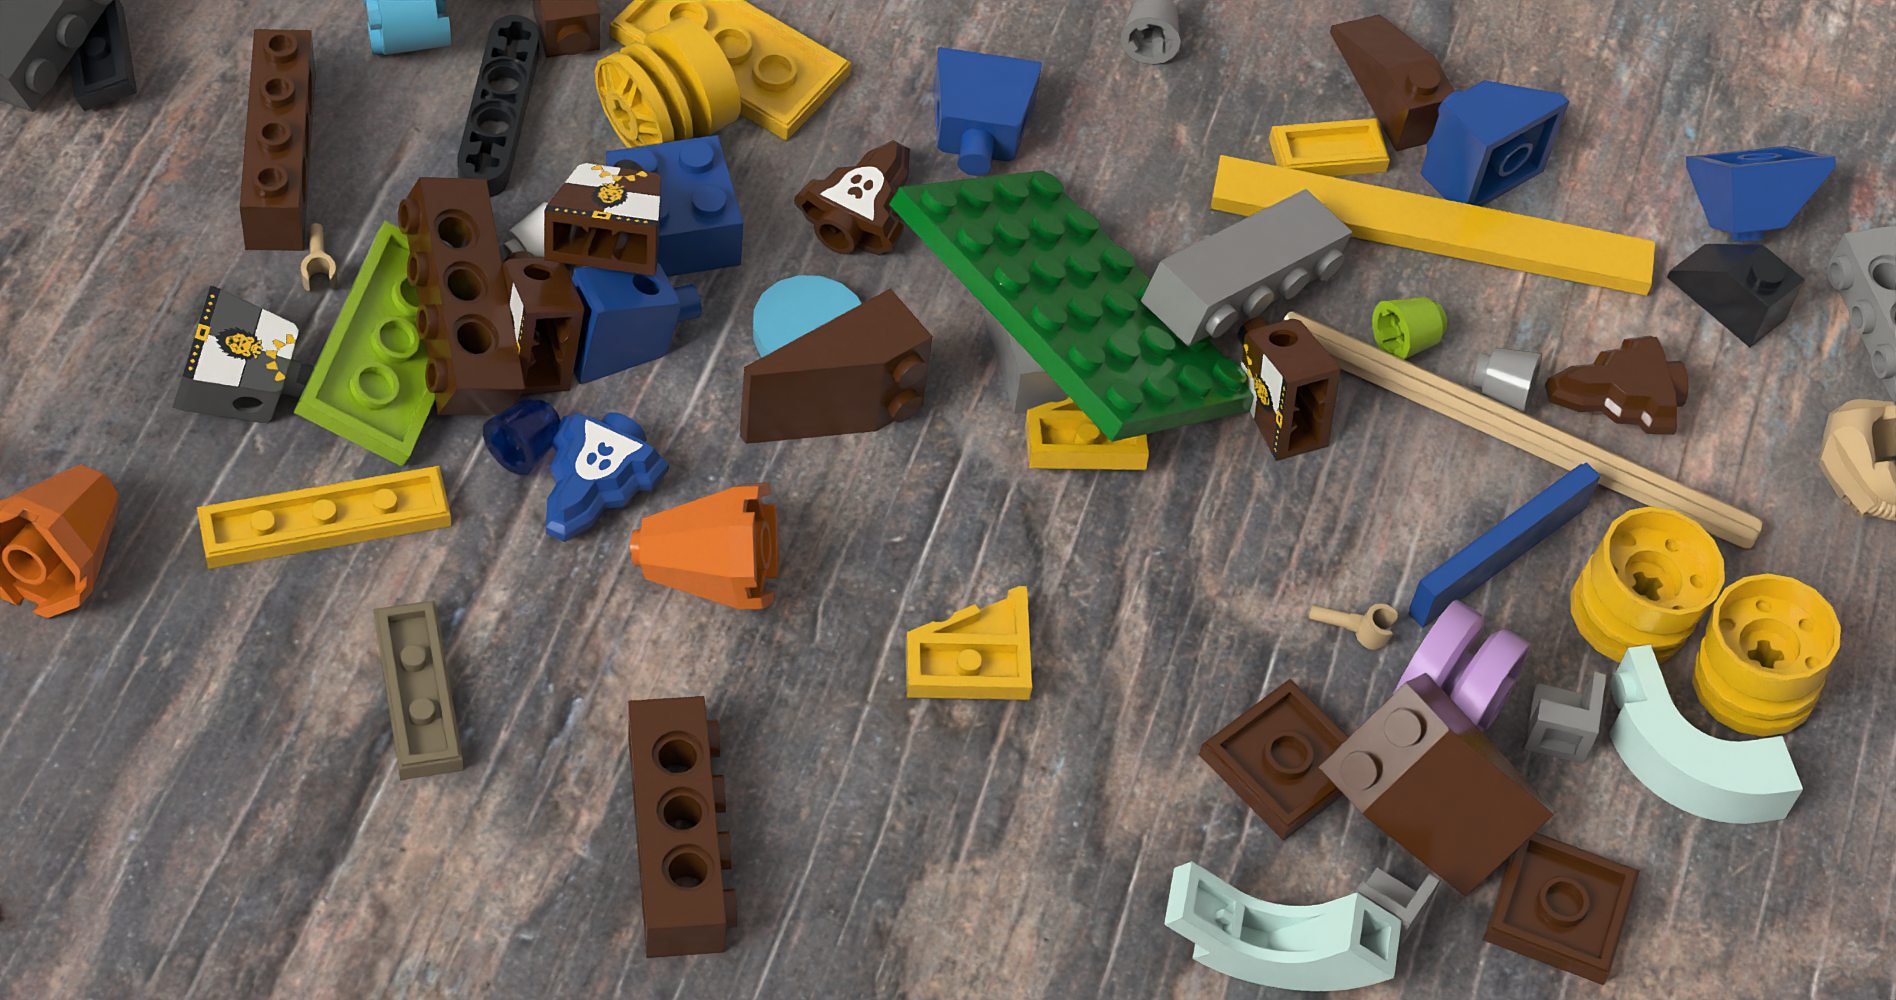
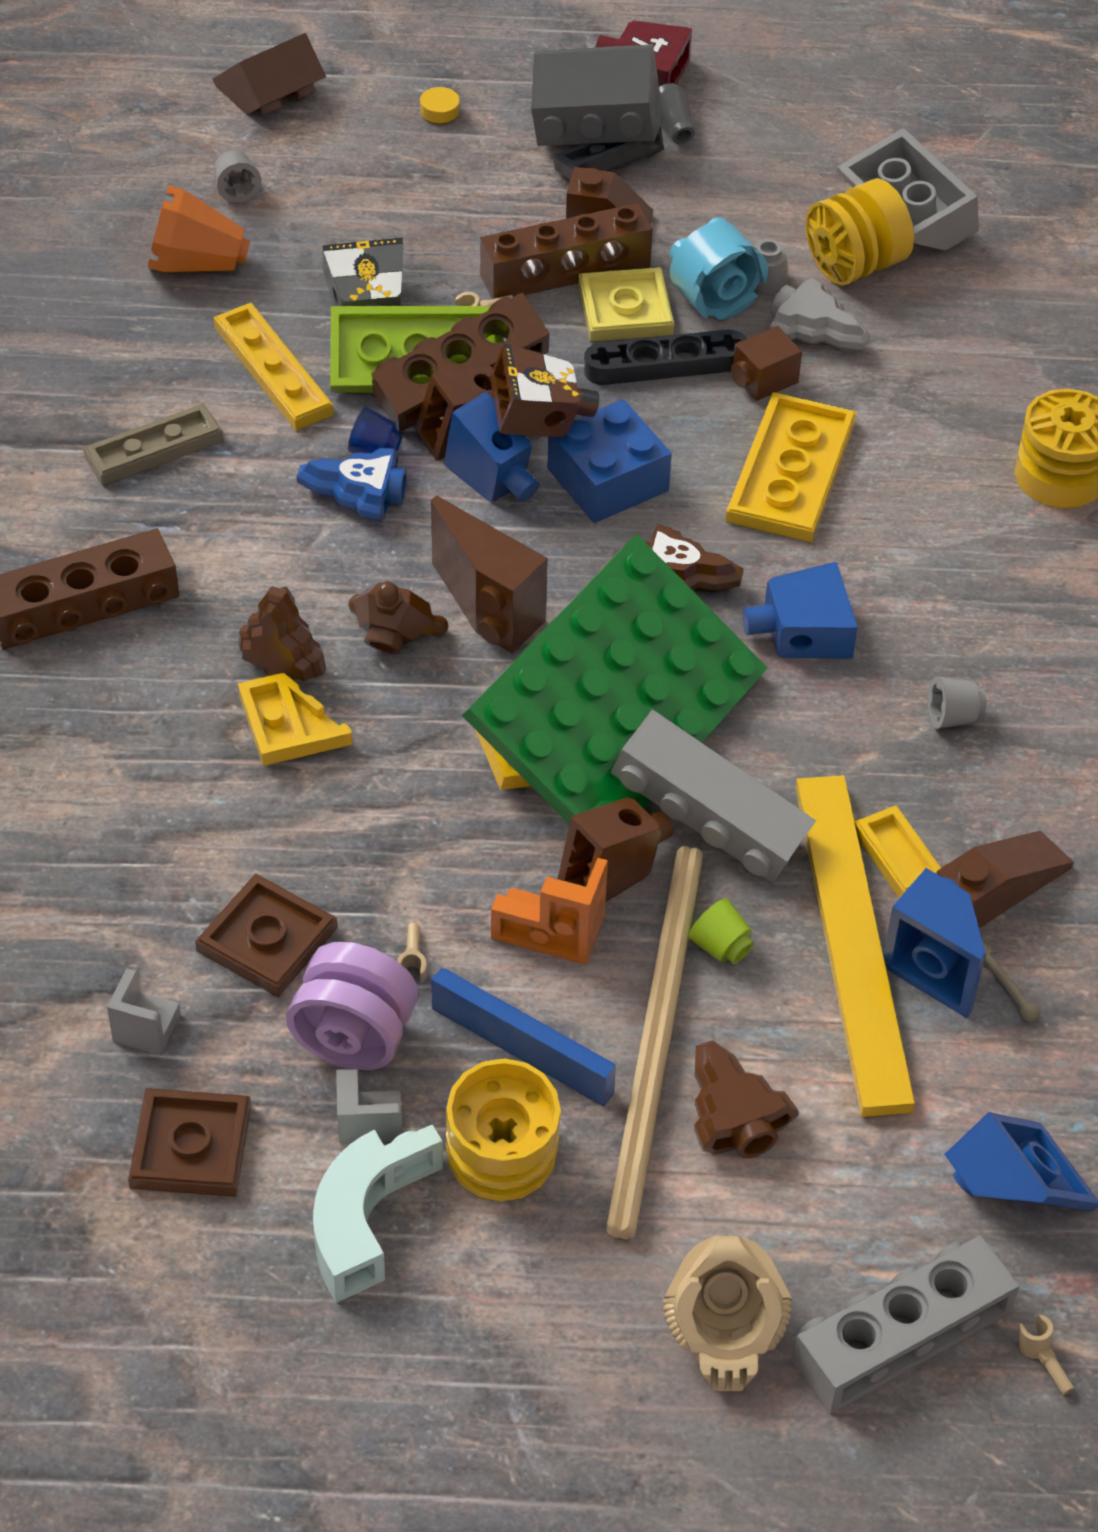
camera: 80 degrees right, 5 degrees down
(200, 80) = (600, 190): none -> reddish brown slope
(381, 116) = (626, 304): none -> light yellow tile
(668, 86) = (706, 420): yellow wheel -> none
(714, 547) = (312, 555): orange cone -> none
(796, 308) = (568, 563): medium azure tile -> none
(851, 500) = (394, 617): none -> reddish brown rock
(865, 617) = (281, 639): none -> reddish brown rock
(1279, 945) = (87, 928): light aqua arch -> none
(1356, 459) = (556, 922): none -> orange panel
(1437, 785) = (241, 993): reddish brown slope -> none
(1508, 376) = (701, 1015): light grey hat -> none
(1740, 287) = (888, 1178): black slope -> none
(1766, 654) = (465, 1230): yellow wheel -> none

